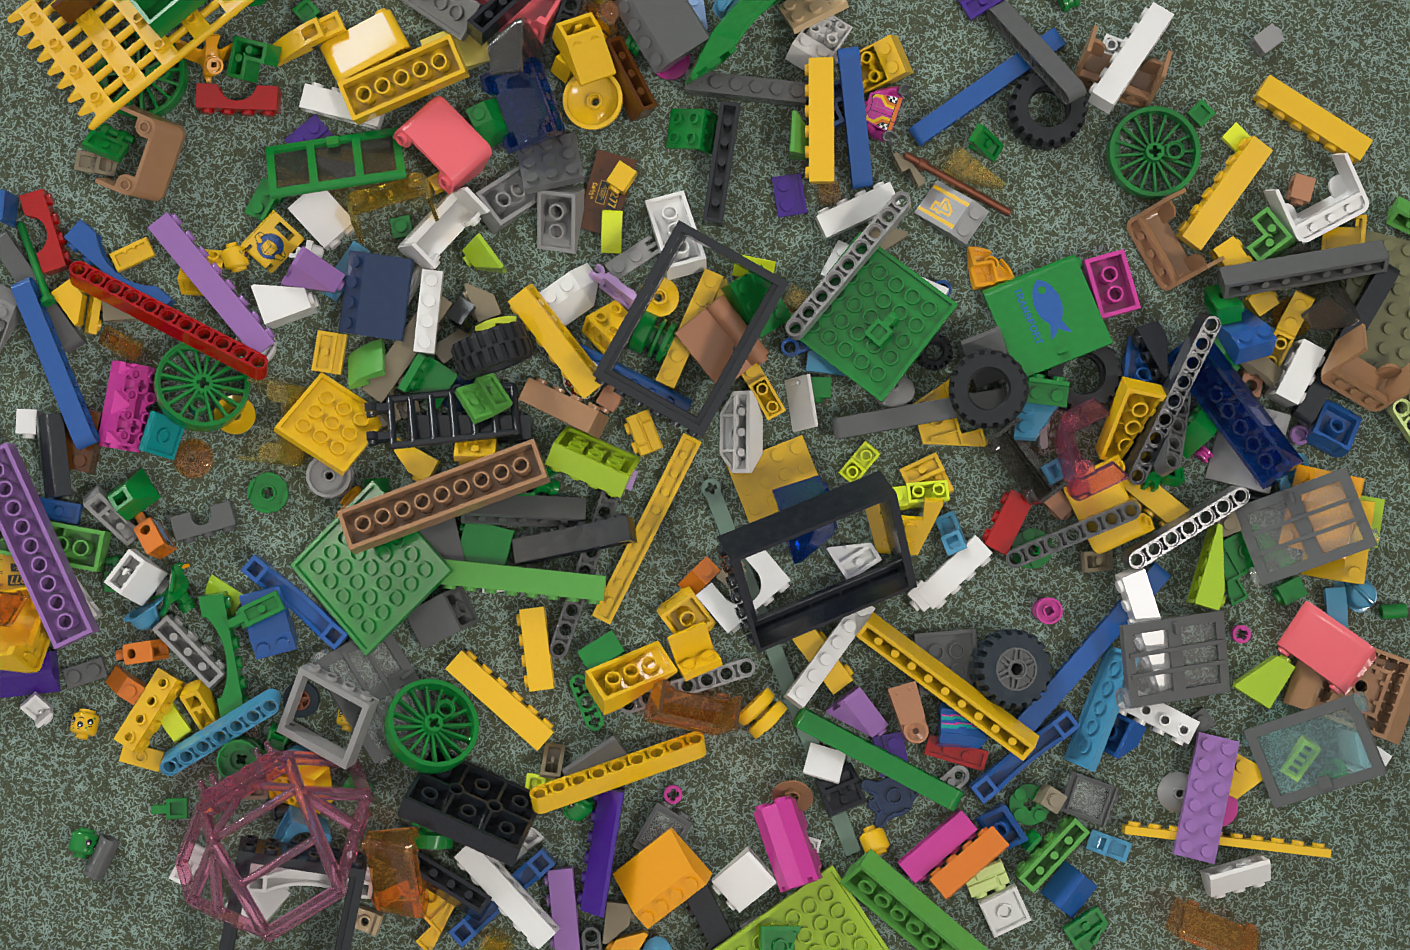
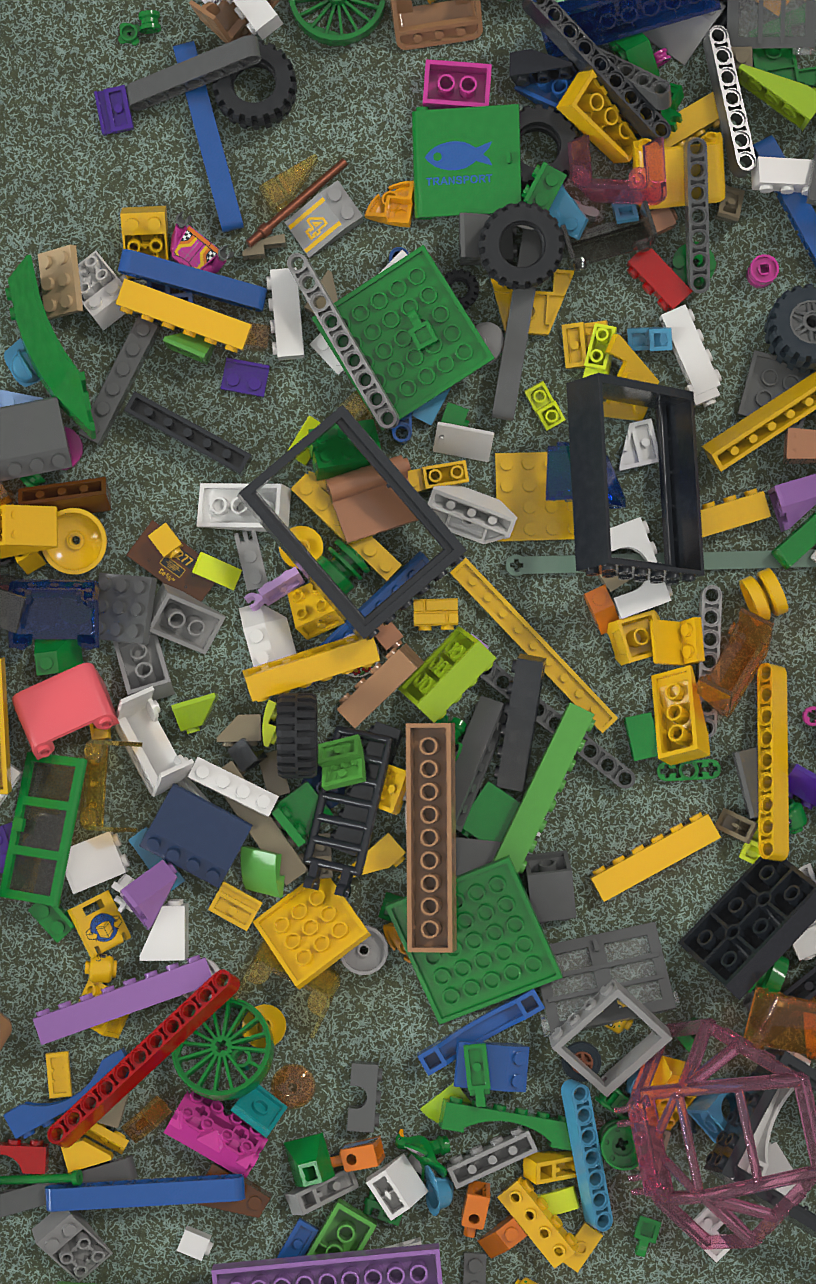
camera: 75 degrees left, 0 degrees up
(53, 456) = (240, 1228): black brick -> none
(258, 498) = (357, 1033): green plate -> none
(401, 226) = (131, 786): green plate -> none
(433, 734) = (668, 936): green piece -> none
(536, 649) = (616, 800): yellow brick -> none
(692, 130) = (141, 452): green bracket -> none
(826, 657) = (745, 529): white arch -> none
(985, 143) = (265, 159): green slope -> none

